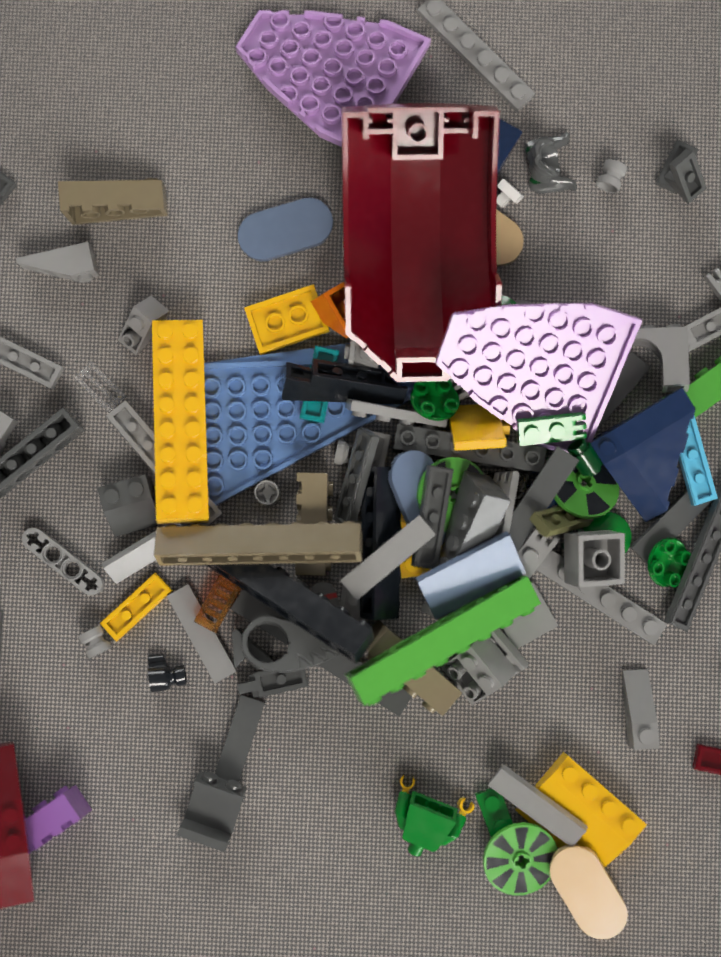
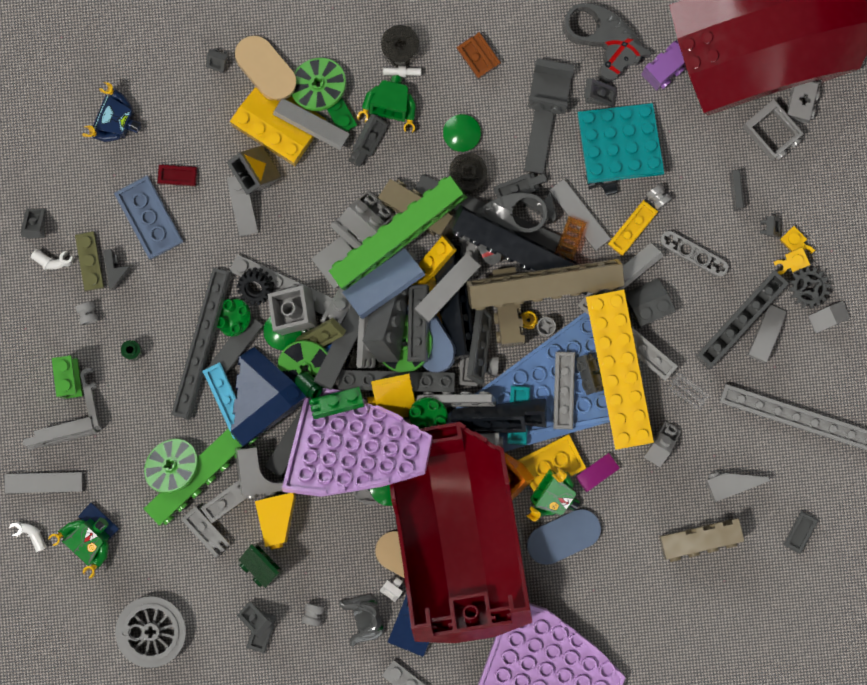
camera: 165 degrees right, 0 degrees up
(118, 867) = (611, 33): none -> dark grey animal
(132, 720) = (620, 143): none -> teal plate
(149, 792) = (599, 93): none -> dark grey slope
(221, 411) = (586, 366): none -> dark grey hinge
(230, 301) = (597, 472): none -> magenta slope
(256, 407) = (564, 390): none -> light grey tile
(282, 506) = (533, 319): none -> yellow plate
(291, 277) = (553, 495): none -> green torso
(302, 867) = (478, 55): none -> dark orange plate
(339, 723) = (468, 162): none -> clear smoke brick
(339, 764) = (461, 133): none -> green dish
(397, 599) = (436, 259): none -> yellow hinge
(404, 911) = (390, 49): none -> clear smoke brick
(406, 860) = (402, 71): none -> white bar
(463, 773) = (368, 139): none -> dark grey hinge
(622, 753) = (254, 170): none -> dark grey brick
(629, 606) = (248, 292): none -> black tyre
(649, 292) = (275, 518): none -> yellow slope
(652, 911) = (216, 60): none -> dark grey tile
(669, 243) = (259, 565): none -> dark green slope

